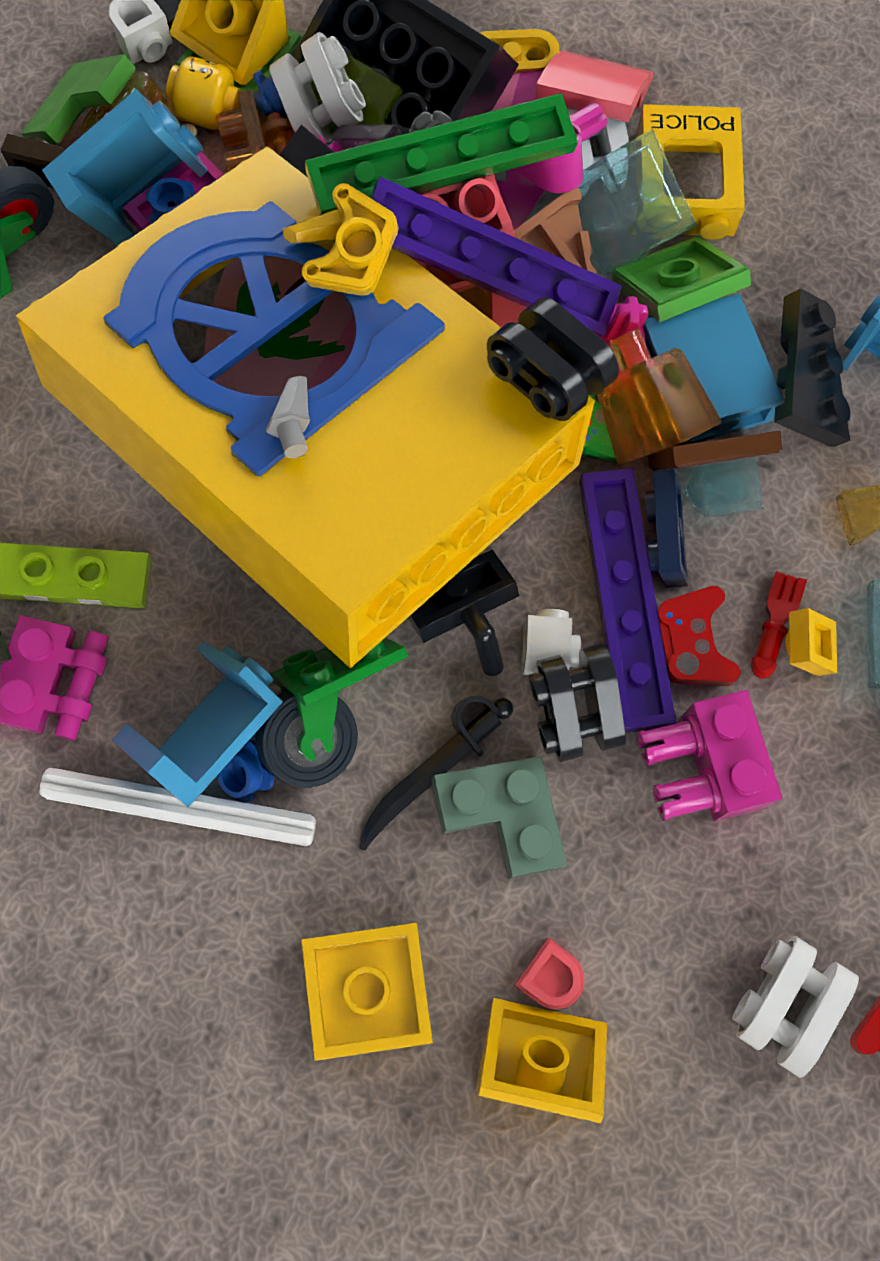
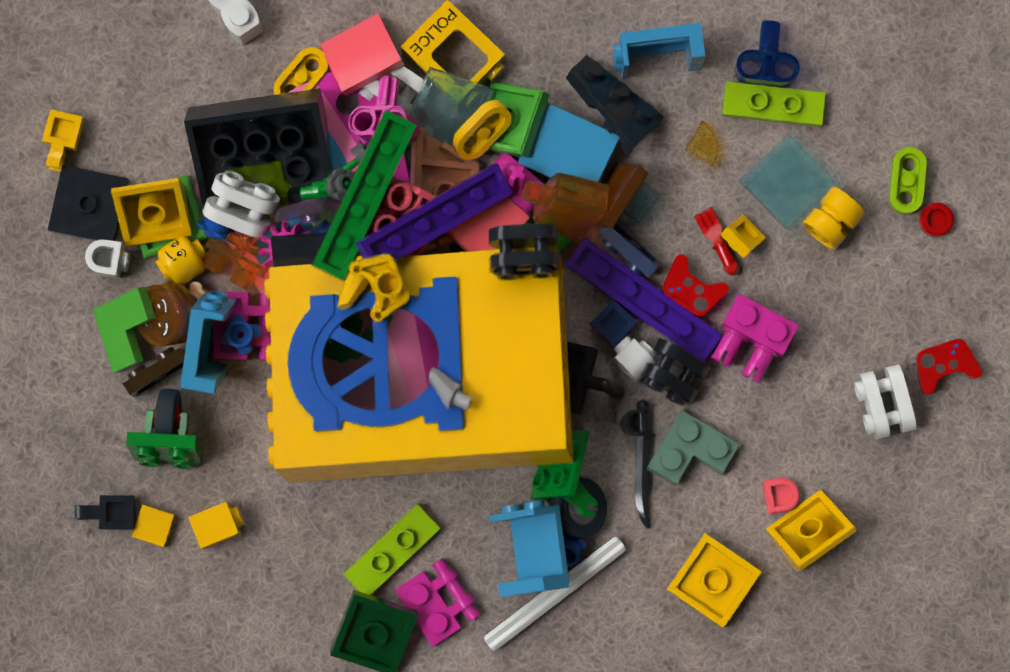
camera: 40 degrees left, 10 degrees up
(567, 586) = (613, 323): none -> dark blue plate
(642, 252) = (483, 128): none -> yellow plate

